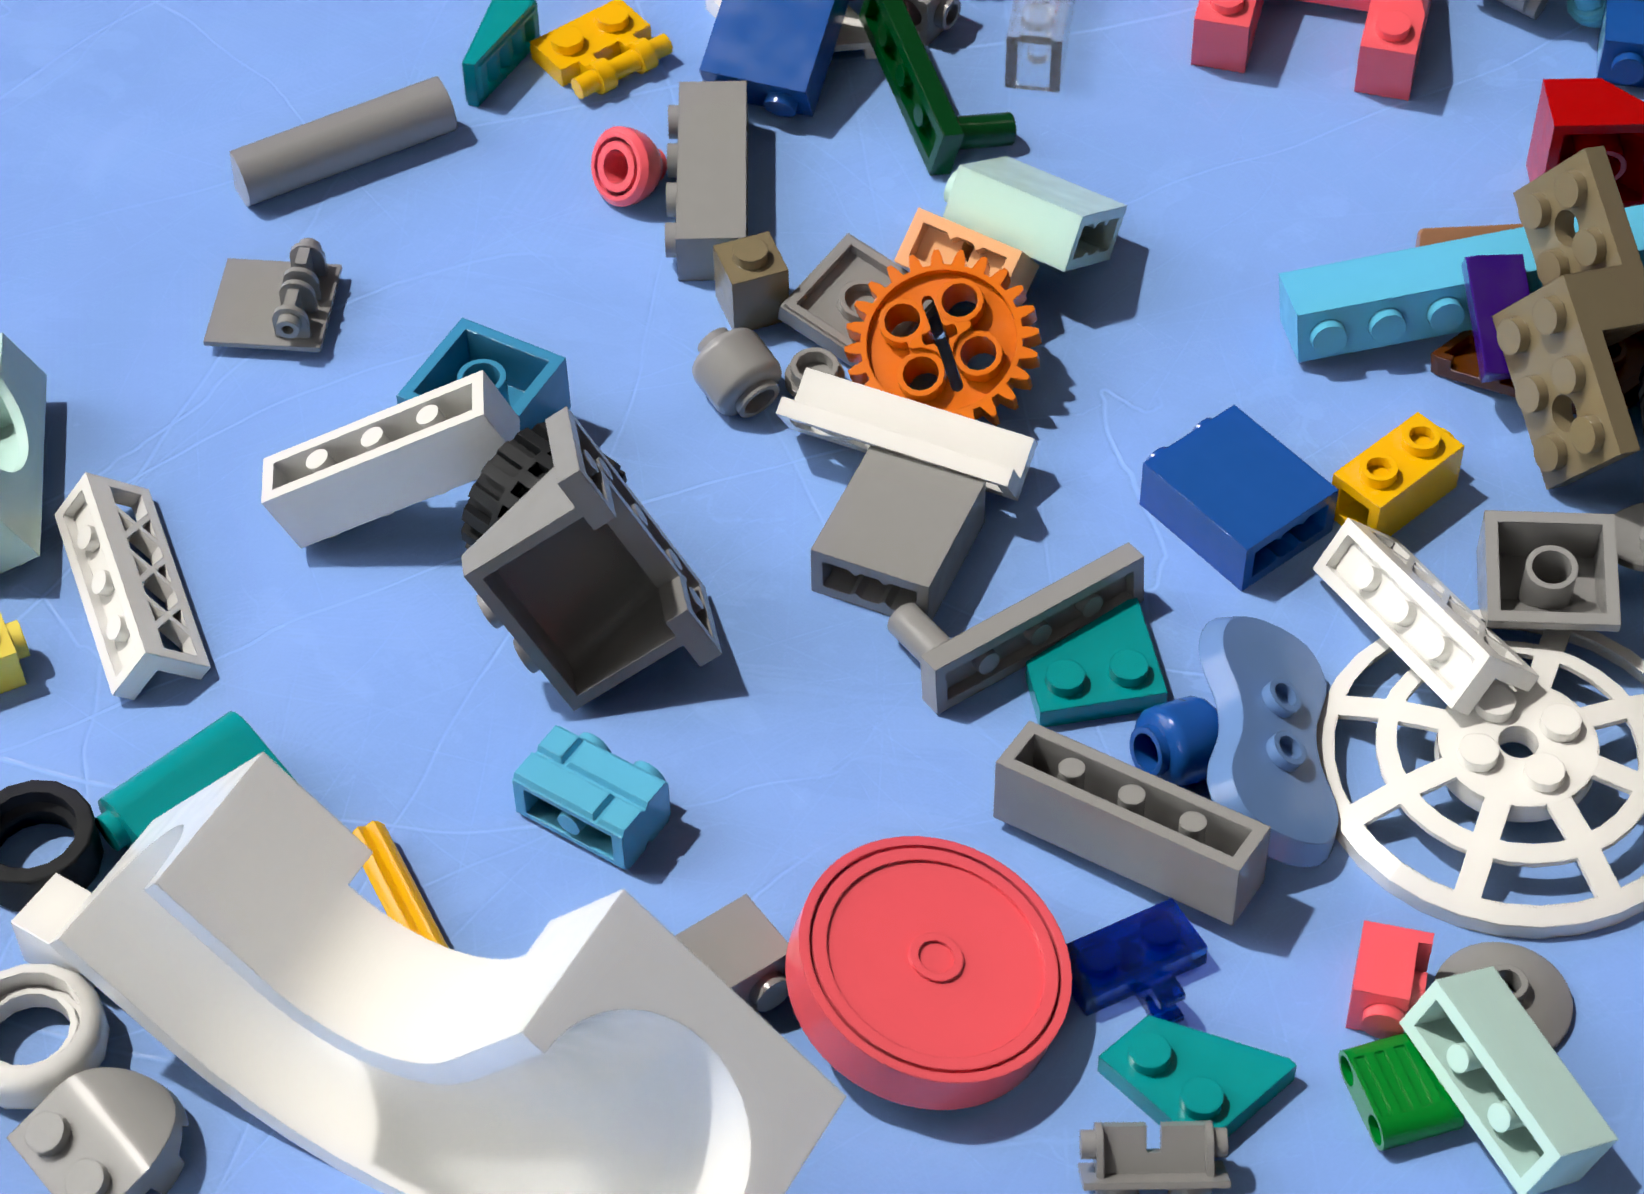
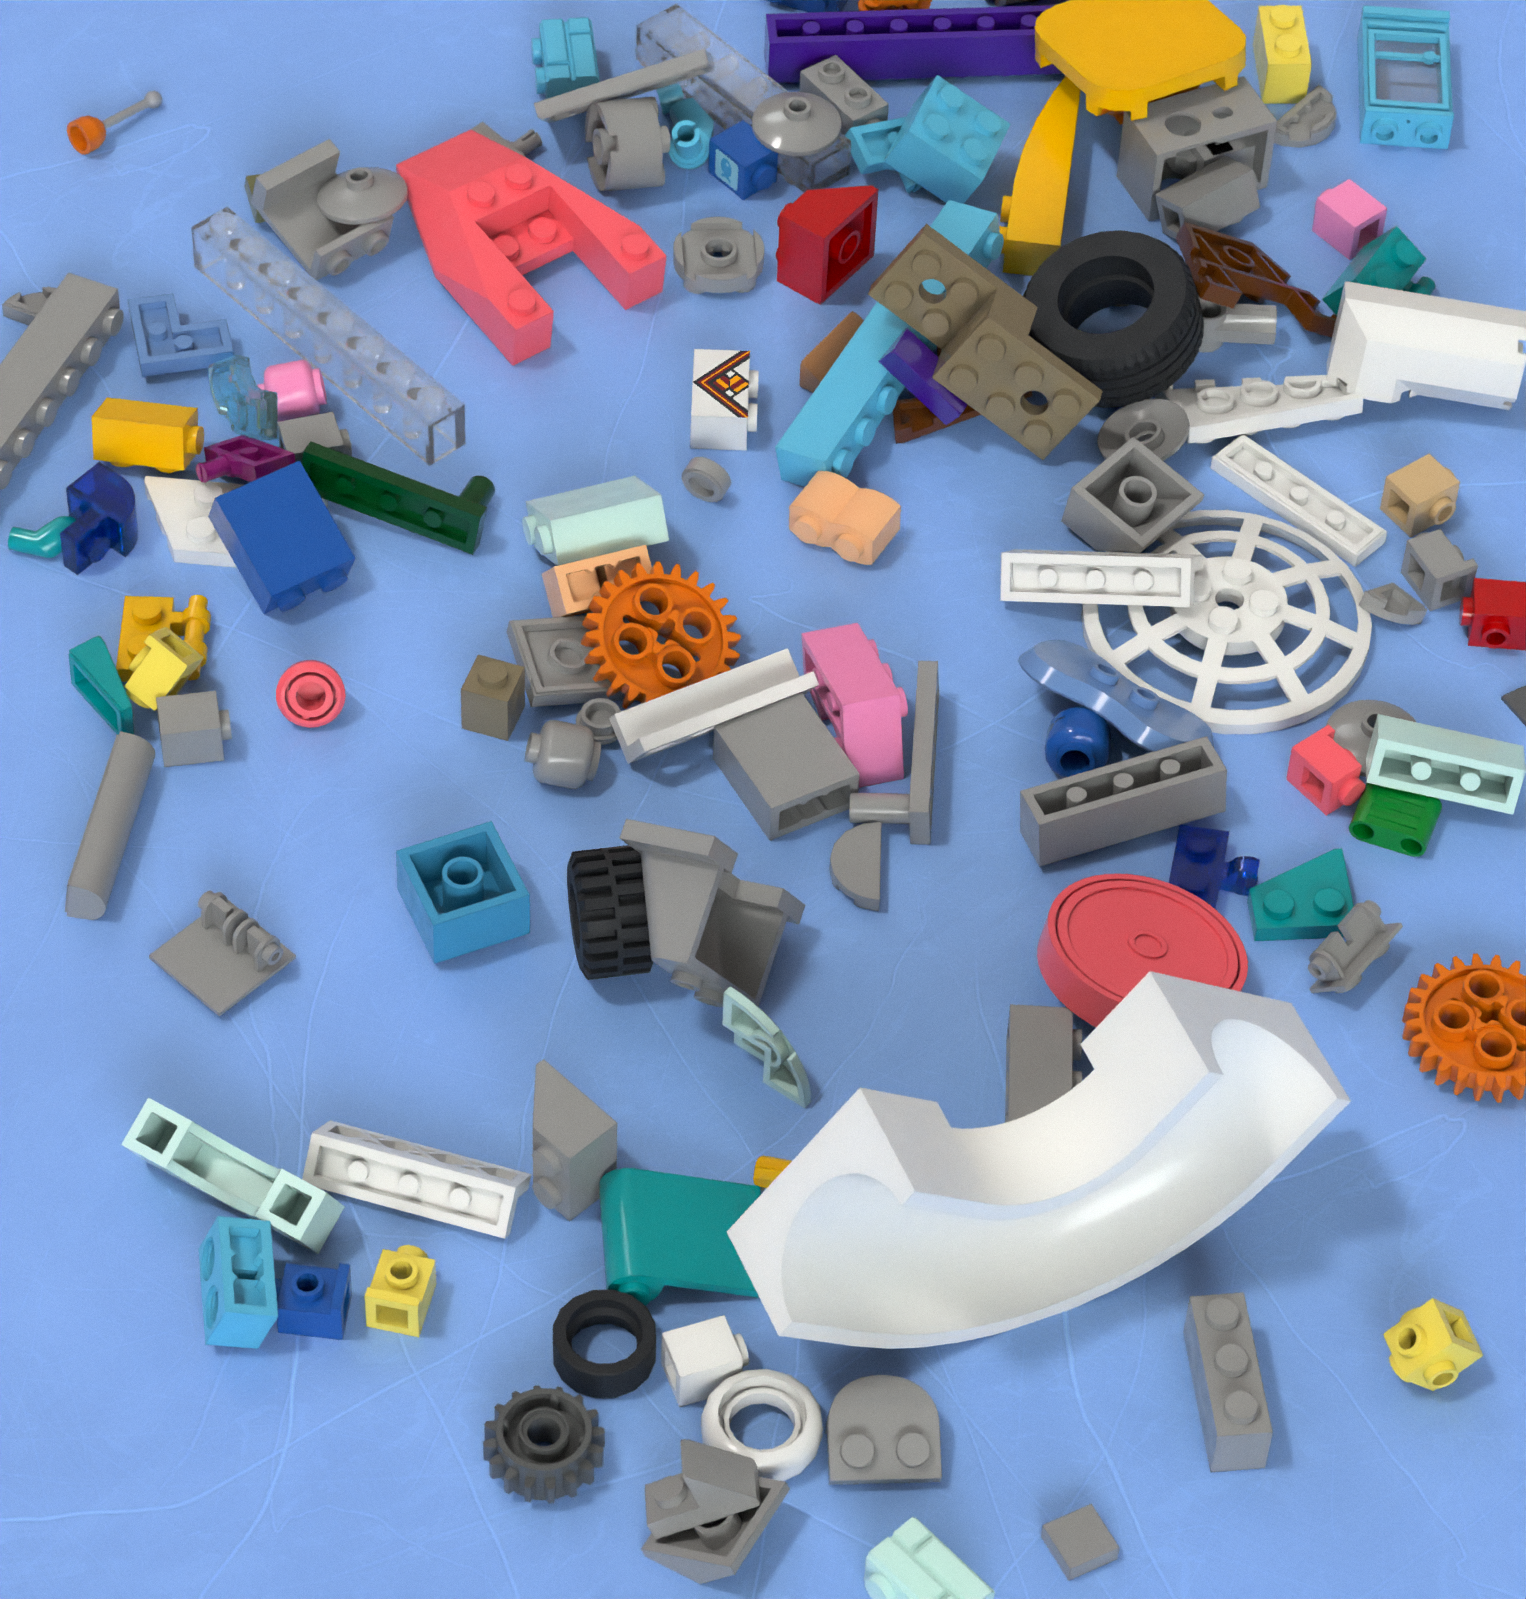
camera: 55 degrees left, 0 degrees up
(231, 649) = (570, 1144): none -> light grey slope
(387, 460) = (492, 960): white brick -> none
(506, 122) = (192, 728): none -> light grey brick
(517, 723) = (763, 1039): none -> light aqua brick
(541, 58) = (161, 668): none -> light yellow brick
(592, 796) = (848, 1038): medium azure brick -> none
(710, 174) = (370, 658): light grey brick -> none
(843, 671) = (857, 864): none -> light grey tile
(1030, 529) = (858, 700): none -> bright pink wedge
(1097, 671) = (978, 747): teal wing -> none
(1196, 261) = (706, 479): none -> light grey tile
(1237, 497) = (916, 592): blue brick -> none
(1270, 380) = (844, 517): none -> light nougat brick
(1308, 209) = (721, 399): none -> white brick
(1398, 476) = (978, 515): yellow brick -> none
(1466, 107) = (733, 272): none -> light grey plate

